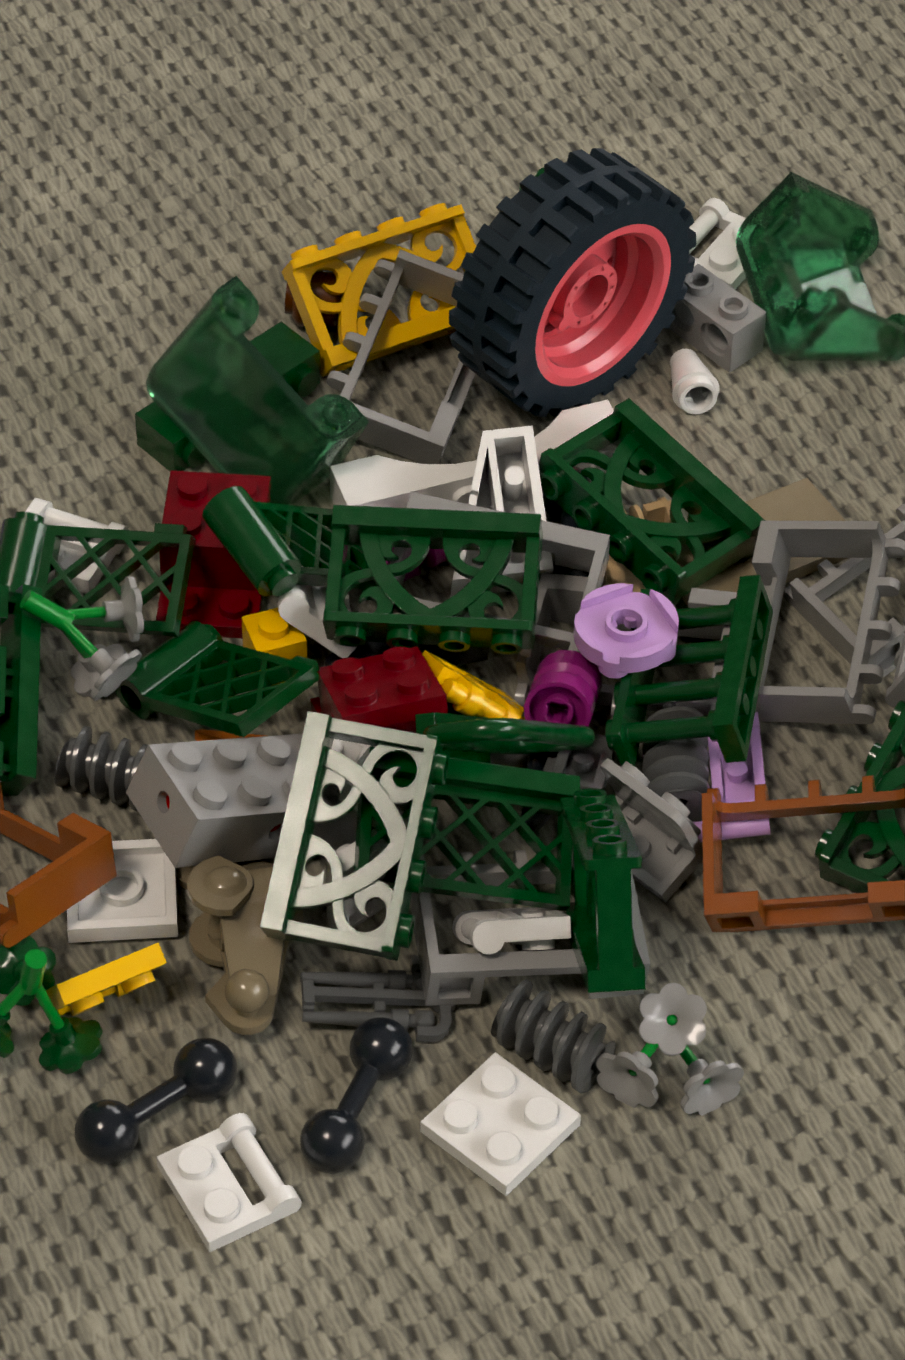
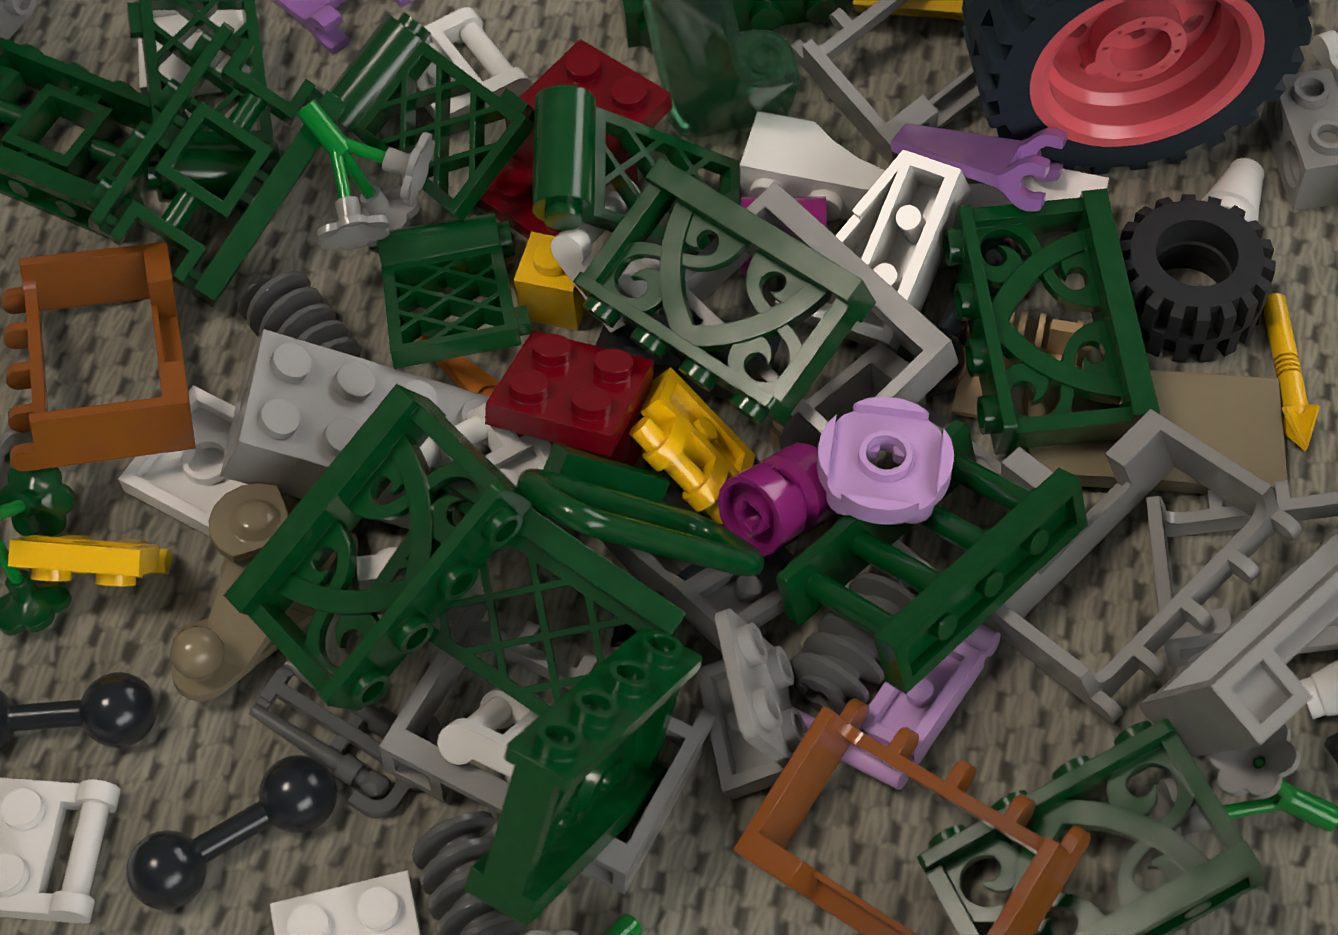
camera: 40 degrees right, 10 degrees up
(542, 413) = (989, 158): none -> medium lavender flag
(718, 427) = (1205, 240): none -> black tyre
(837, 495) = (1299, 415): none -> yellow piece

